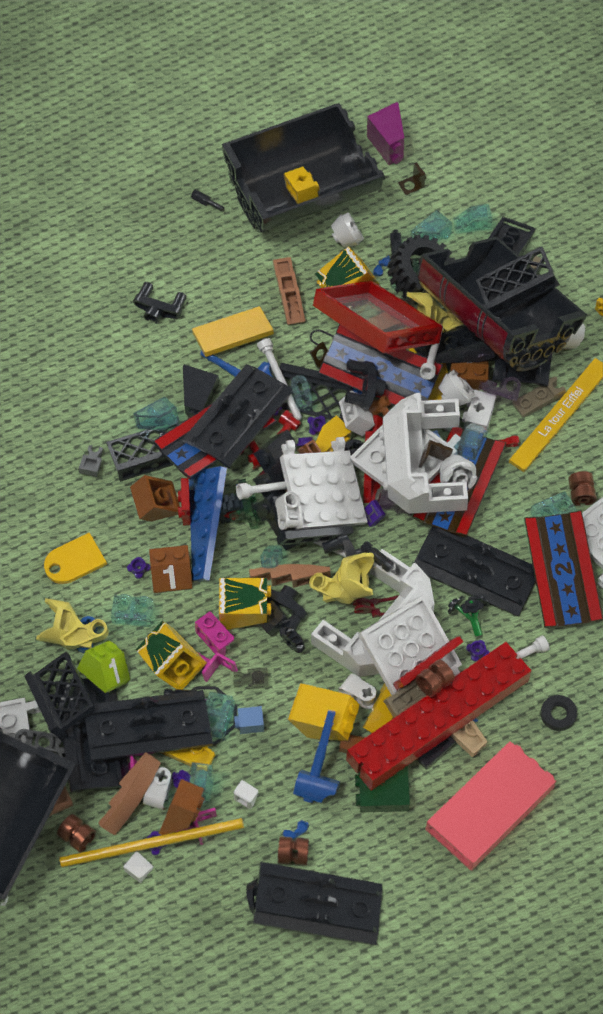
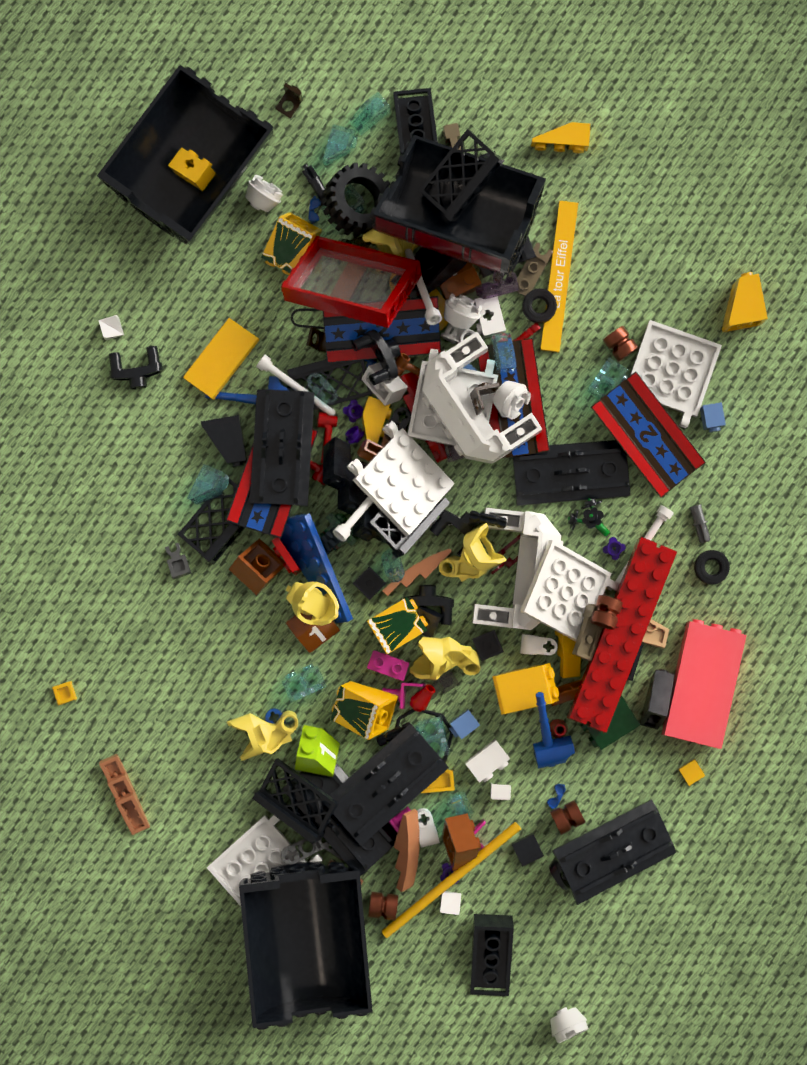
camera: 30 degrees left, 25 degrees up
(74, 559) = (223, 661): yellow tile -> none
(138, 561) = (277, 639): dark purple plate -> none
(145, 934) = (491, 954): none -> black slope
(159, 266) = (111, 327): none -> white slope
(178, 776) = (439, 809): dark purple plate -> none
(181, 537) = (310, 601): none -> light yellow piece
(205, 199) = (108, 230): black axle -> none
(227, 677) = (422, 698): none -> red cone
(238, 861) = (527, 849): none -> black piece
(241, 562) = (369, 583): none -> black piece
(251, 762) = (487, 761): none -> white brick
(268, 649) = (442, 655): none -> light yellow piece
(288, 291) = (246, 286): nougat slope -> none
(289, 512) = (394, 531): white piece -> none
(292, 639) = (456, 632): black gear -> none
(313, 668) = (487, 645): none -> black piece
(333, 770) = (556, 723): none -> red cone
(374, 513) = (454, 470): dark purple tile -> none
(387, 133) = (238, 63): magenta slope -> none
(434, 879) = (691, 772): none -> yellow tile
(438, 794) = (657, 699): none -> black slope
(439, 654) = (589, 597): red tile -> none
(528, 413) = (536, 317): none -> black tyre
(569, 670) = (700, 523): none -> dark grey axle

